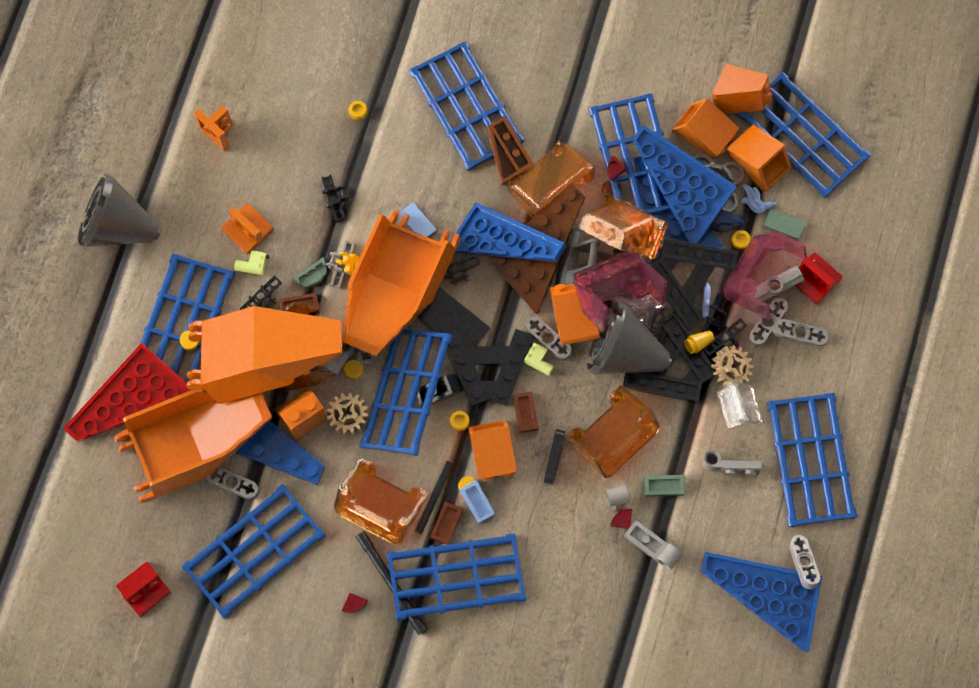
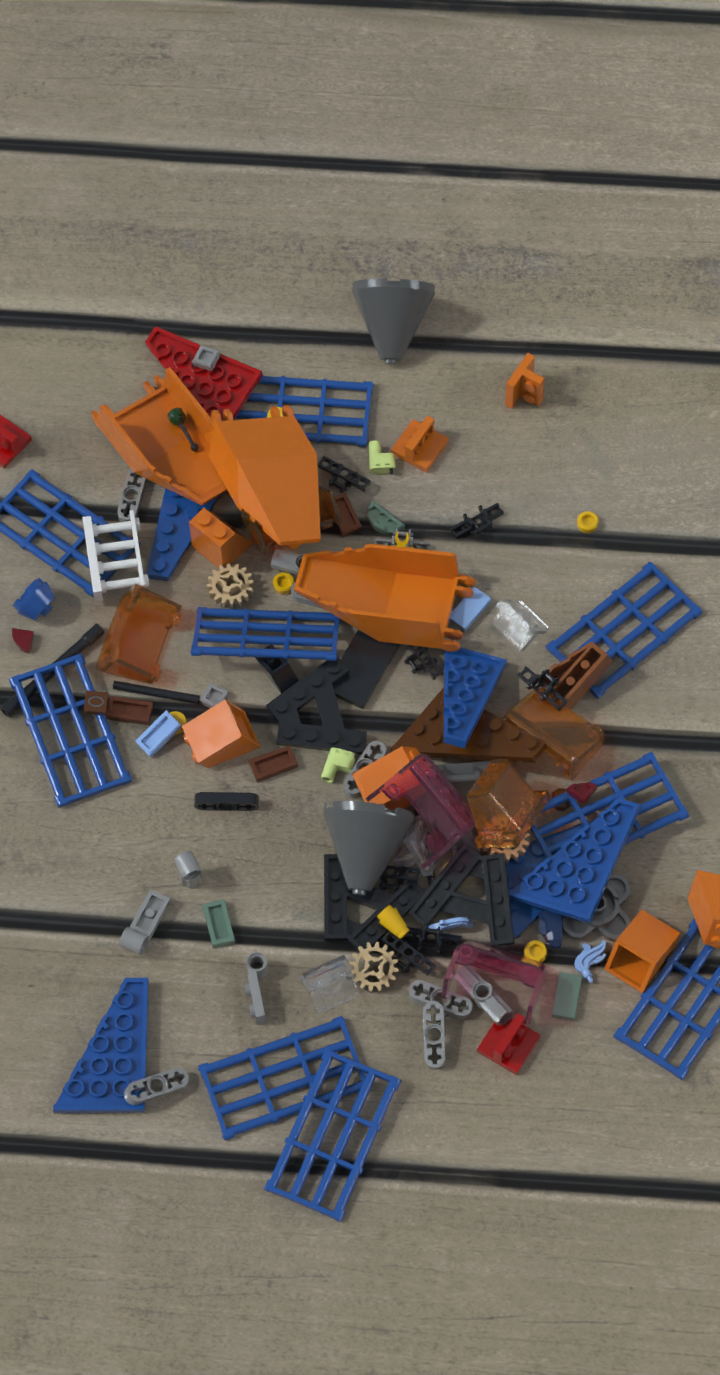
camera: 75 degrees right, 10 degrees down
(113, 388) = (206, 358): none -> light grey tile
(167, 425) = (177, 417): none -> hinge
(304, 523) = (97, 567): none -> white fence
(323, 584) = (35, 600): none -> blue cone
(439, 548) = (96, 703): none -> reddish brown tile
(444, 184) = (518, 623): none -> clear bracket
(450, 449) = (213, 696): none -> light grey tile
(459, 421) = (248, 699): yellow tile -> none
(509, 176) = (534, 679): none -> black piece
(616, 433) = (263, 858): clear orange windscreen -> none
(622, 519) = (170, 887): dark red tile -> none
(706, 128) = (661, 885): orange slope -> none
(881, 447) = (313, 1149): none -> blue door

